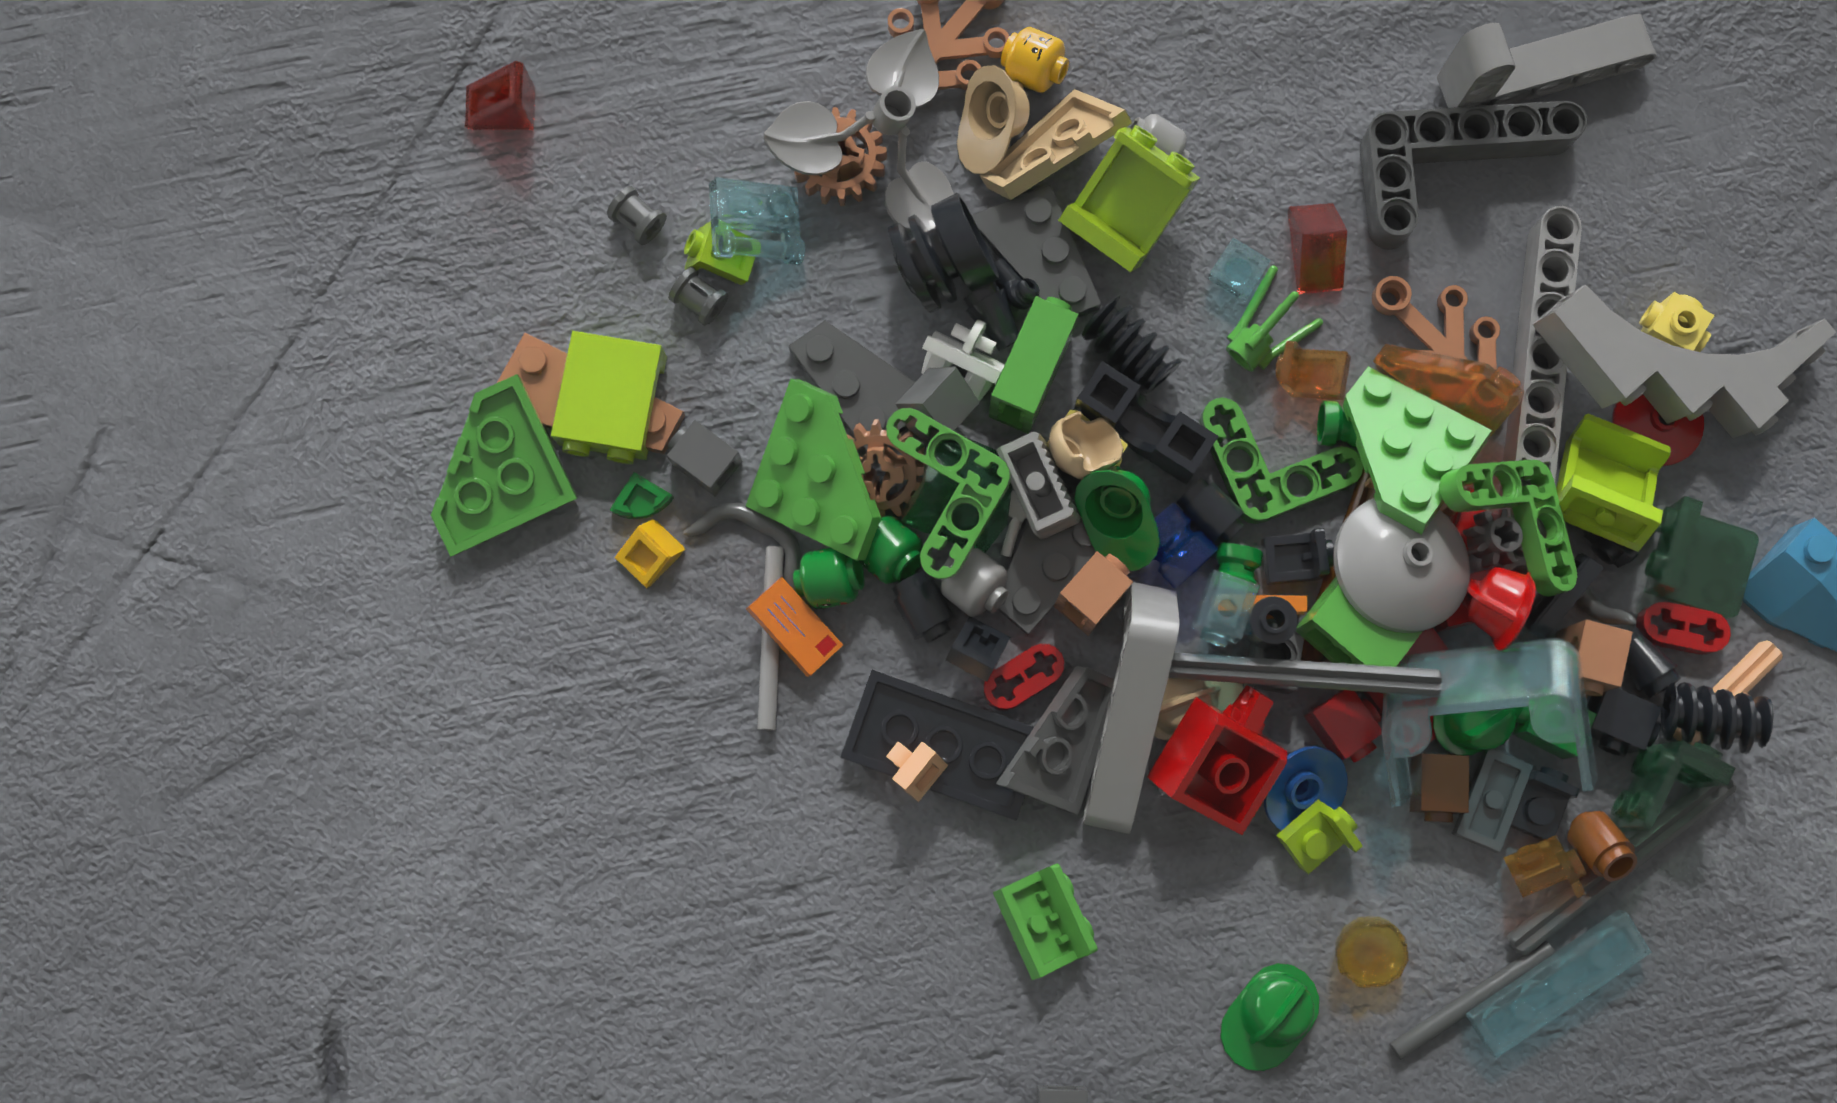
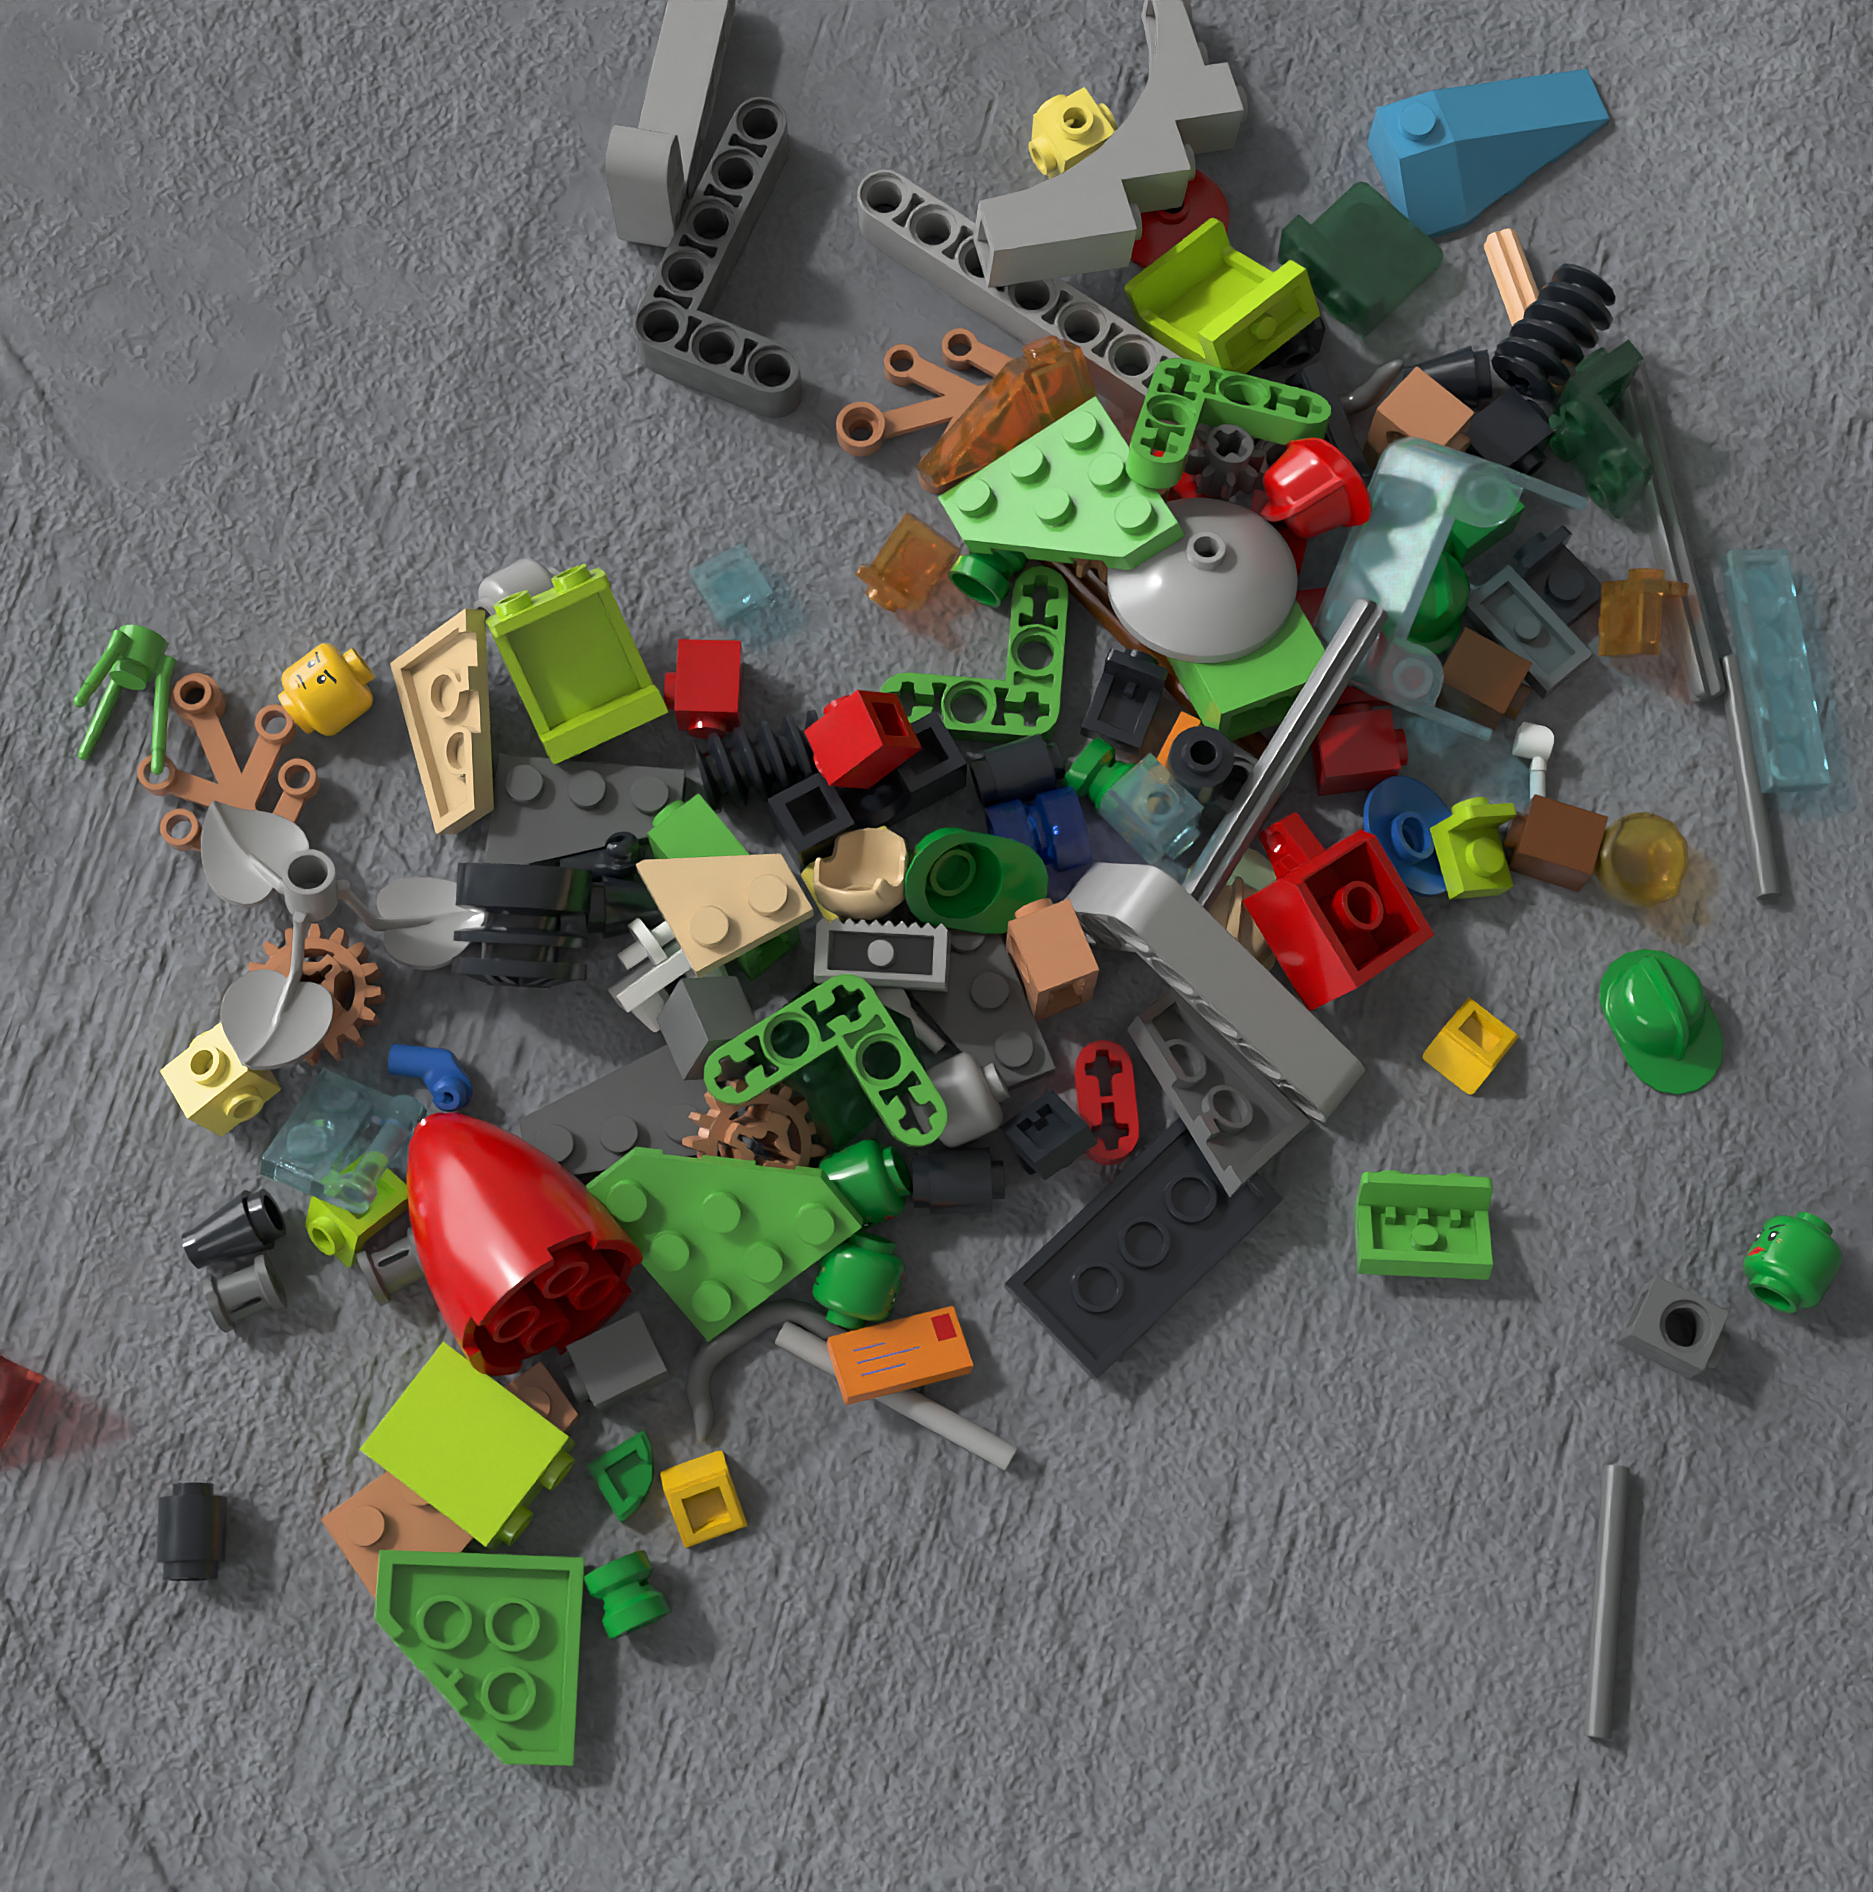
camera: 65 degrees left, 5 degrees down
(479, 262) = (191, 1532): none -> black brick
(567, 536) = (627, 1594): none -> green wheel
(675, 192) = (237, 1229): none -> black cone
(741, 352) = (511, 1243): none -> red cylinder
(744, 128) = (215, 1086): none -> light yellow brick
(832, 256) = (439, 1071): none -> blue arm
(916, 769) = (1163, 1286): light nougat tile -> none
(991, 116) = (374, 783): tan piece -> none
(1013, 366) = (724, 903): none -> tan wing
(1162, 289) = (706, 686): none -> red brick
(1171, 398) = (861, 739): none -> red brick
(1185, 896) = (1469, 1046): none -> yellow slope
(1251, 345) = (834, 620): bright green plant -> none
(1318, 247) = (753, 480): clear red slope -> none
(1353, 887) = (1555, 842): none -> reddish brown brick
(1416, 843) = (1534, 743): none -> white hand
(1602, 845) = (1639, 536): dark orange brick -> none
(1685, 618) = (1417, 311): red beam -> none

